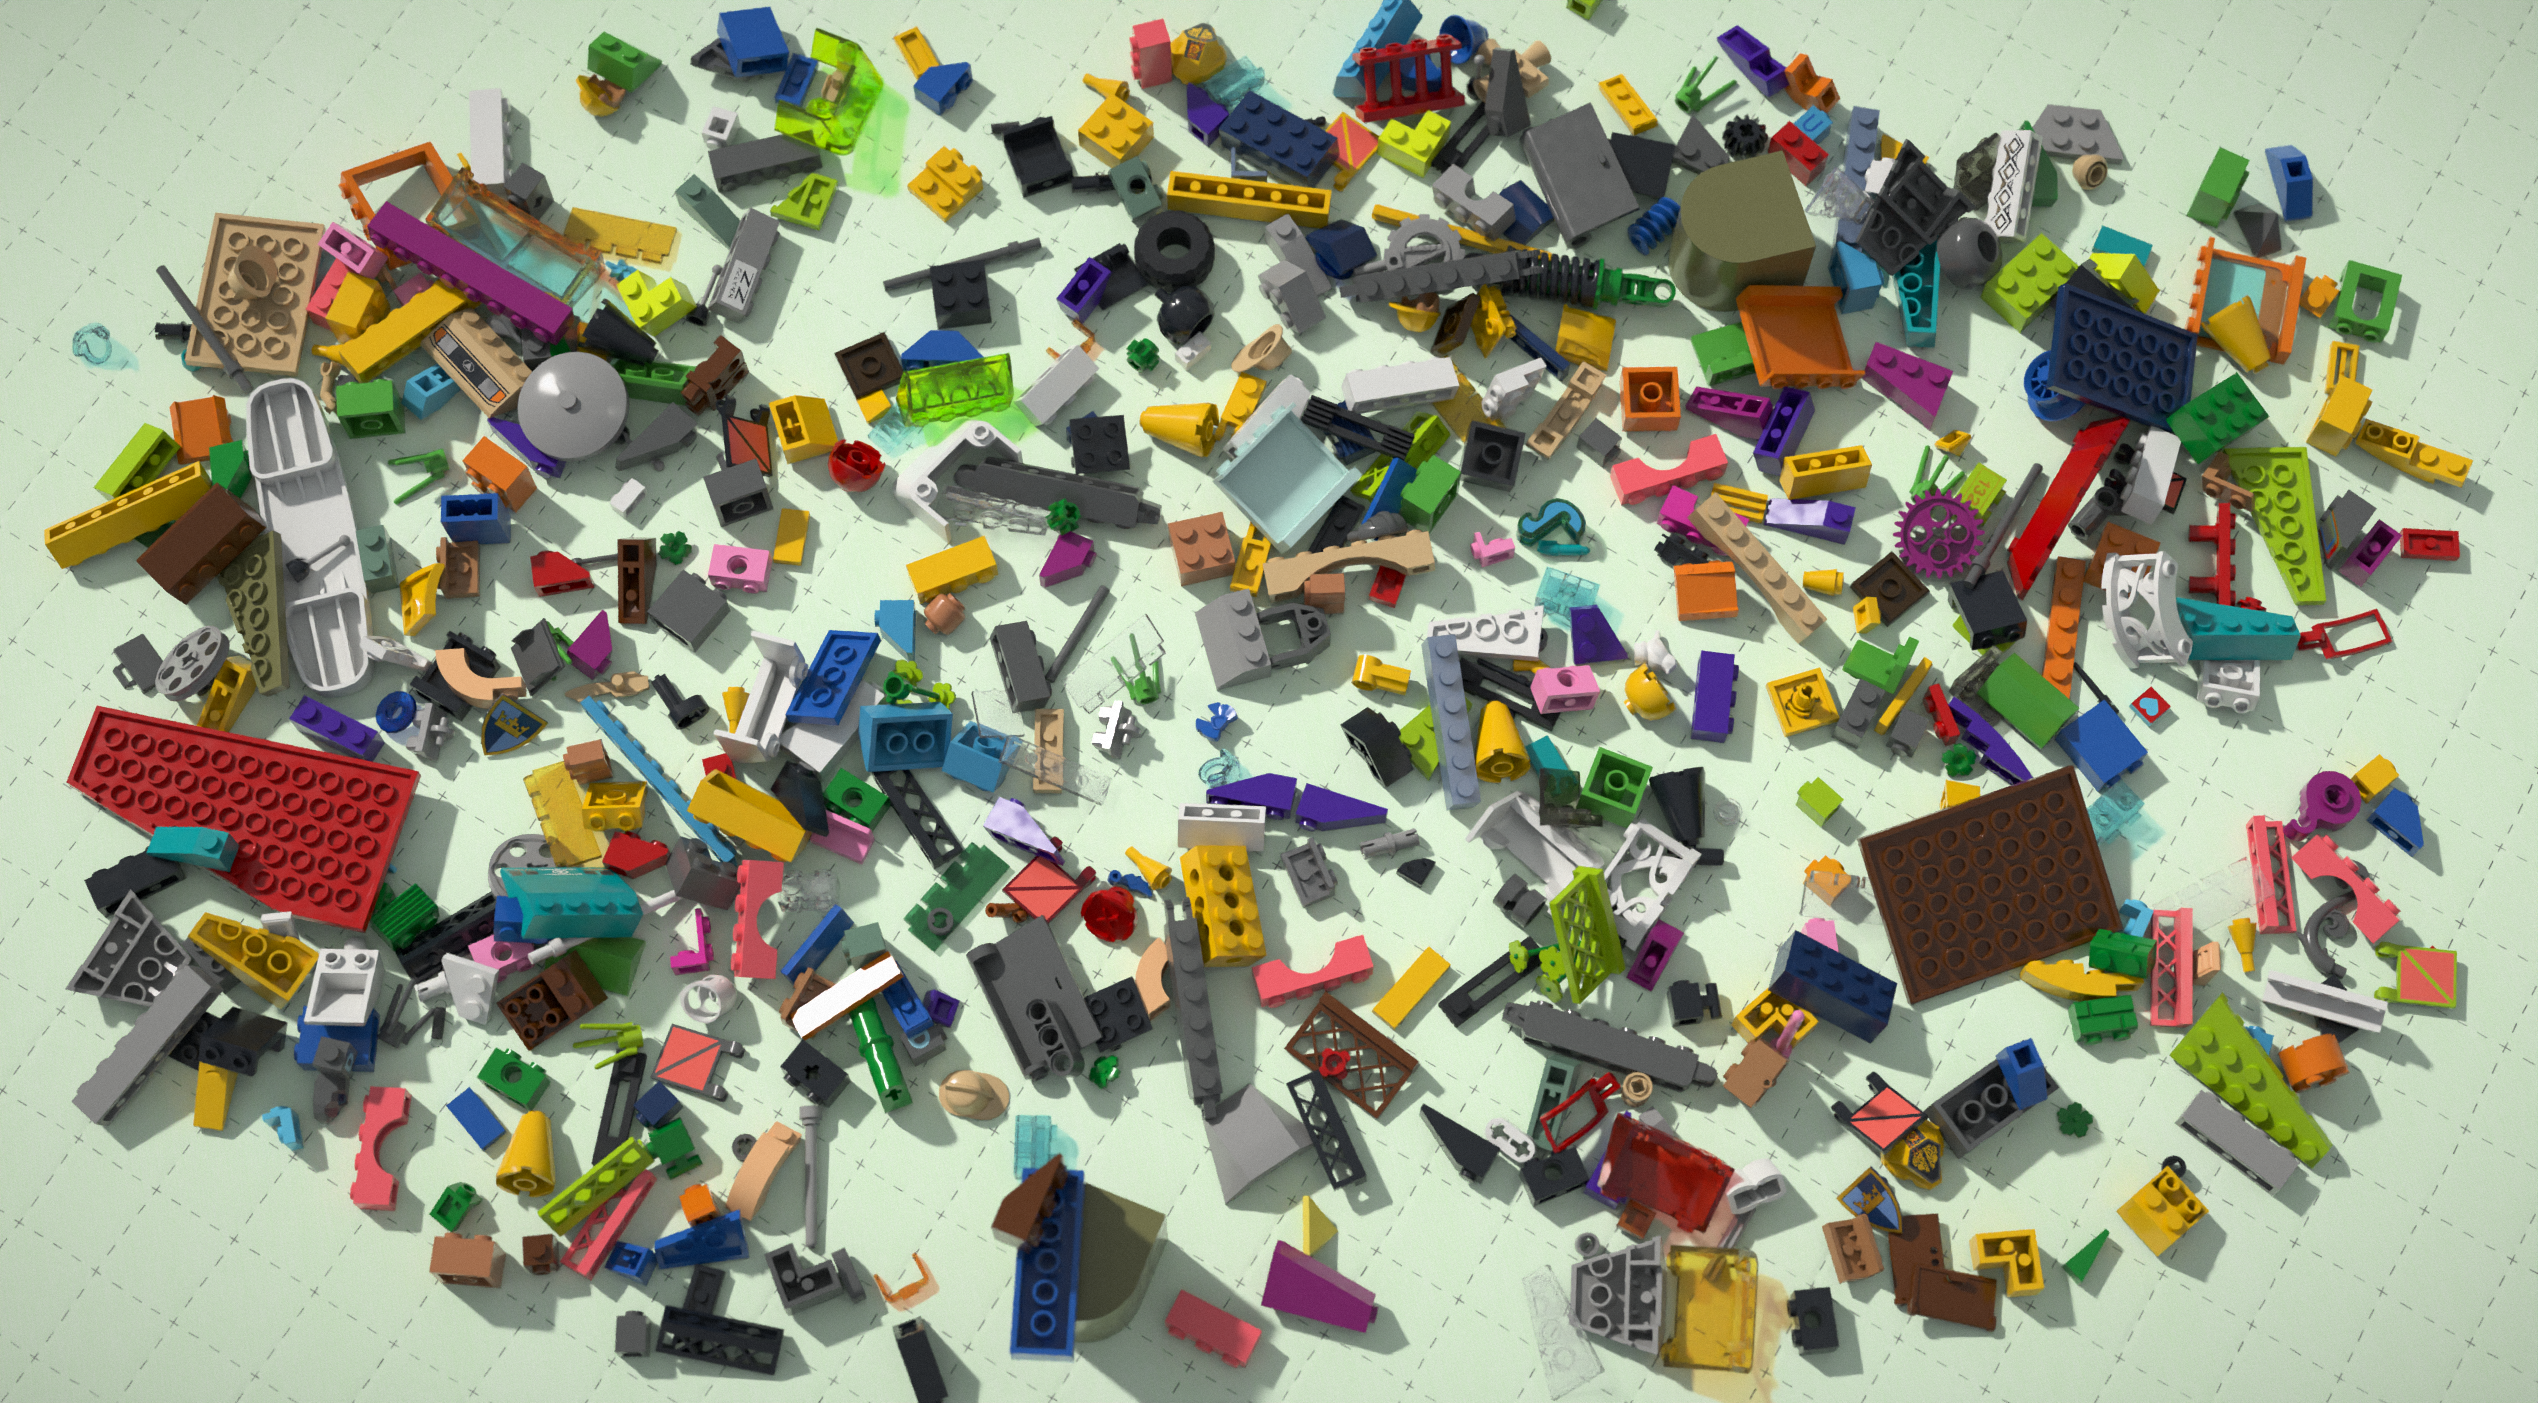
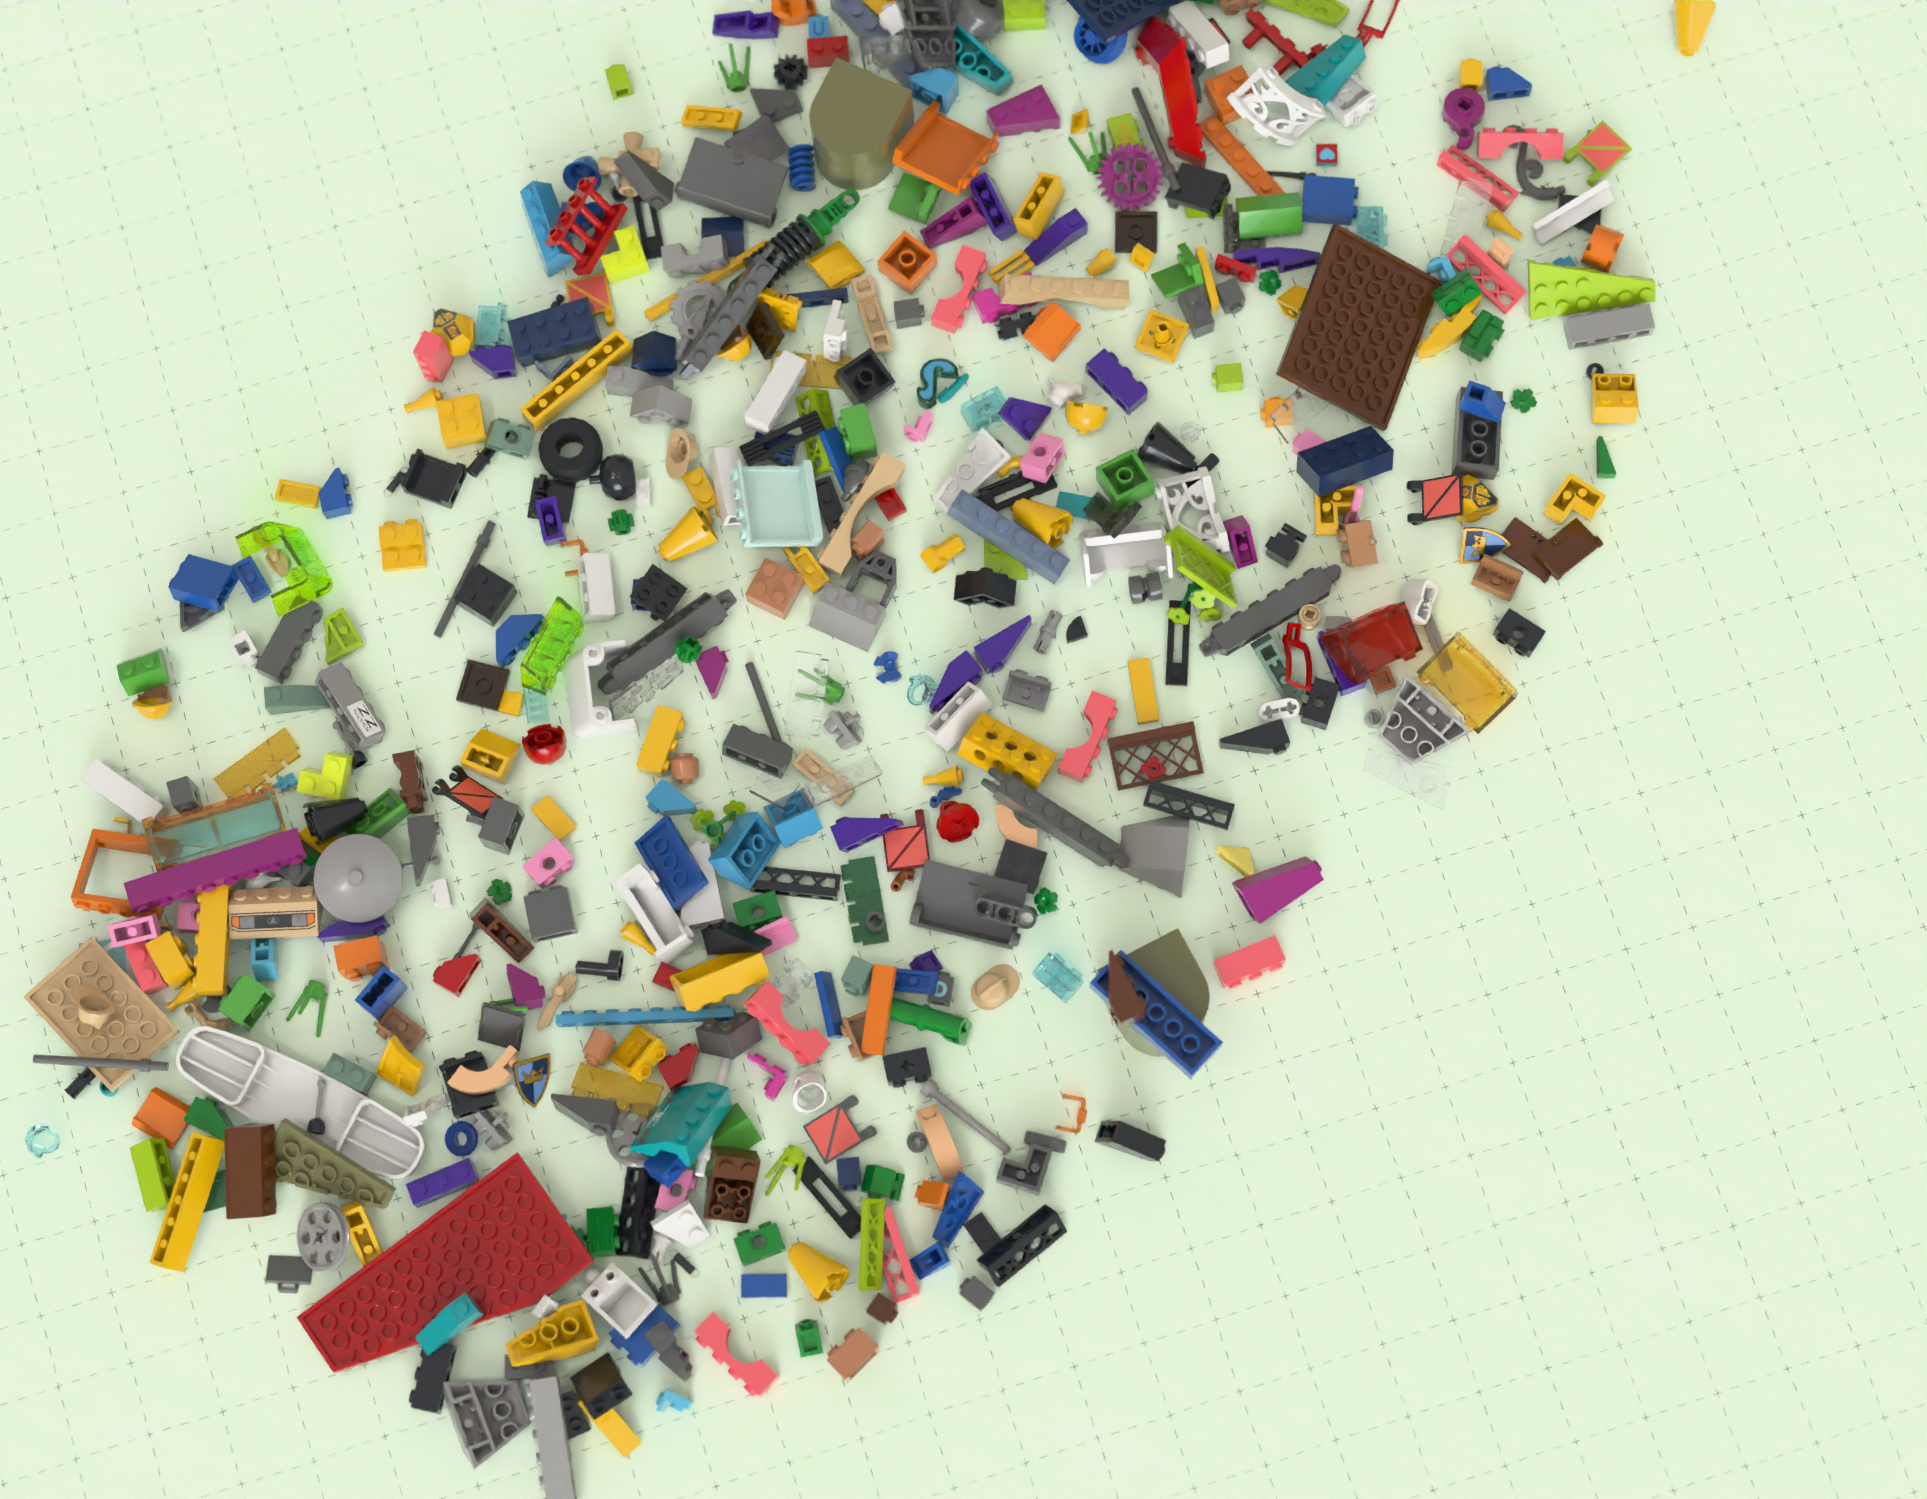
camera: 45 degrees left, 5 degrees up
(518, 814) = (593, 1114): none -> dark grey slope

